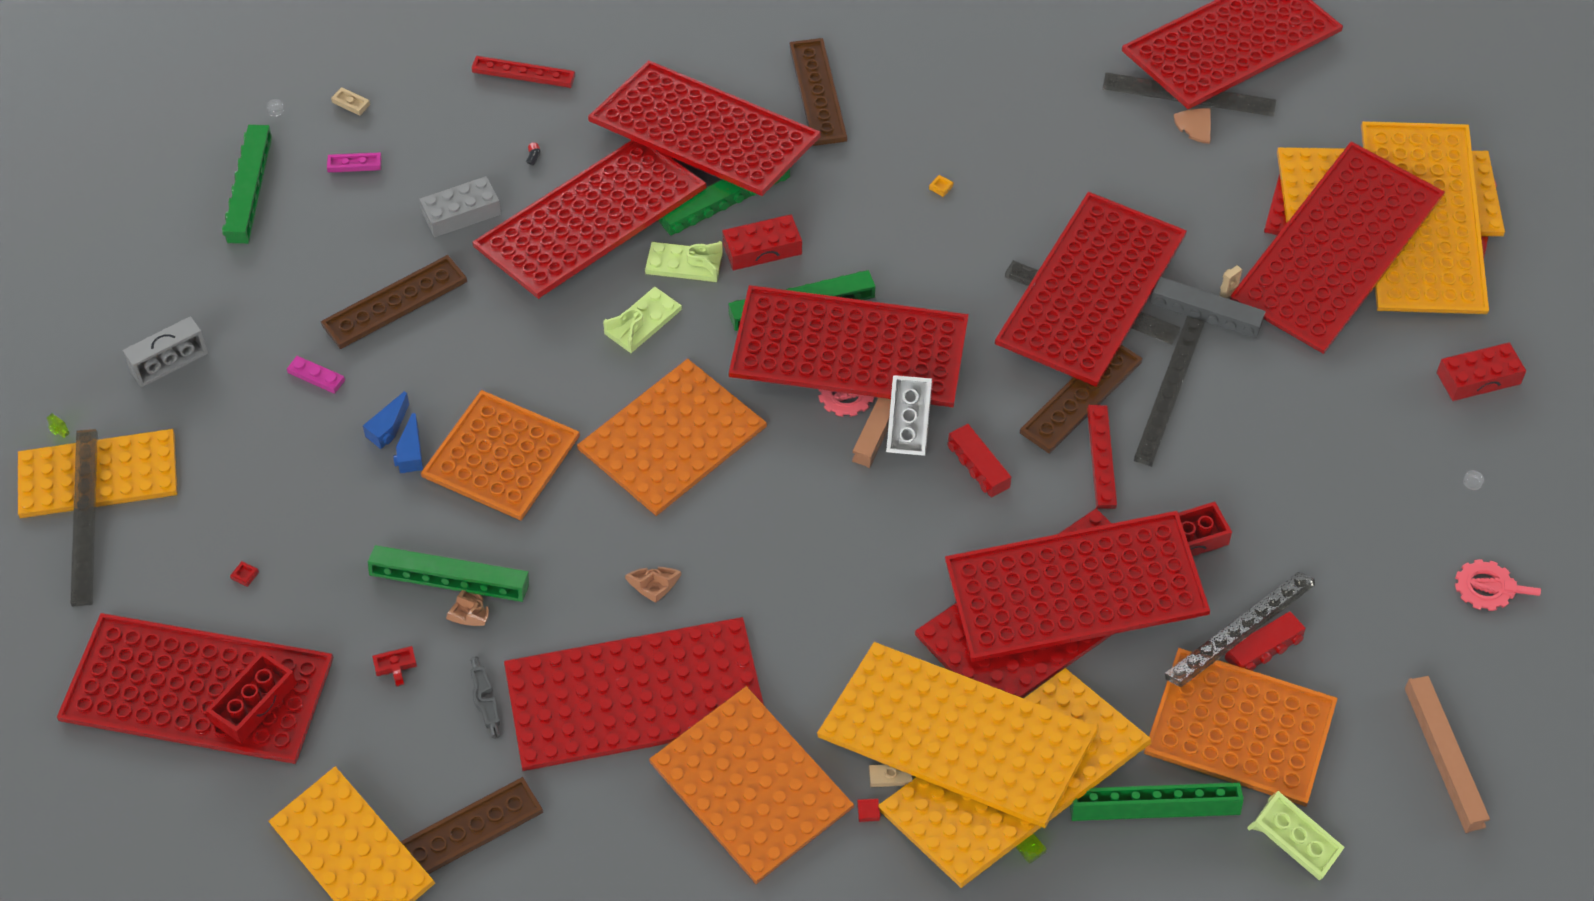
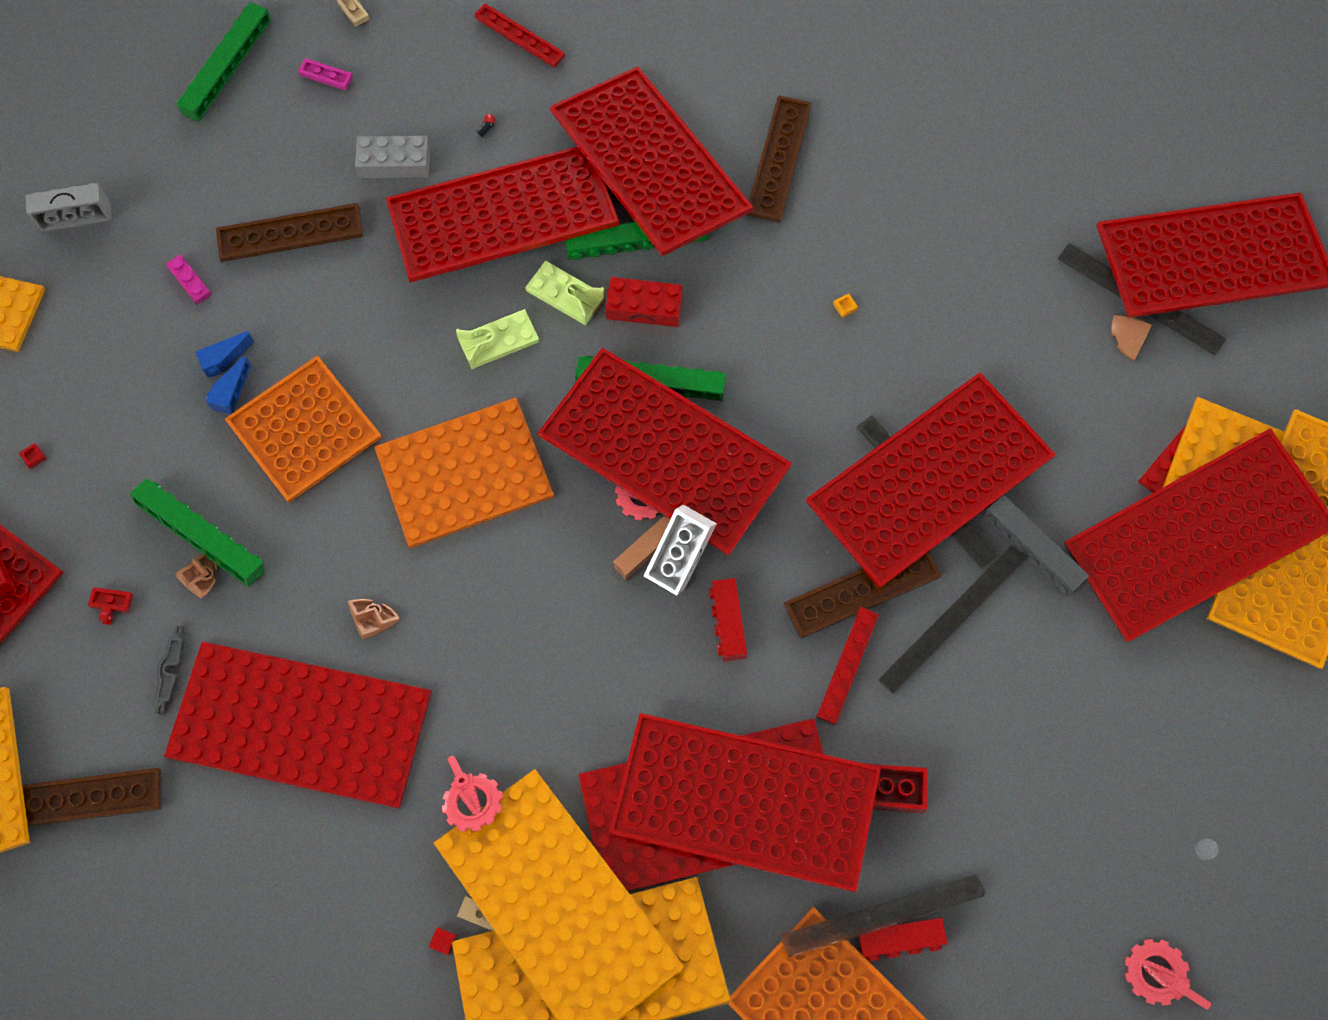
camera: 25 degrees right, 15 degrees up
(751, 784) = (350, 868): orange plate -> none
(824, 679) = (465, 788): none -> coral bar
(1230, 281) = (1070, 529): tan plate -> none
(1481, 371) = (1278, 733): red brick -> none

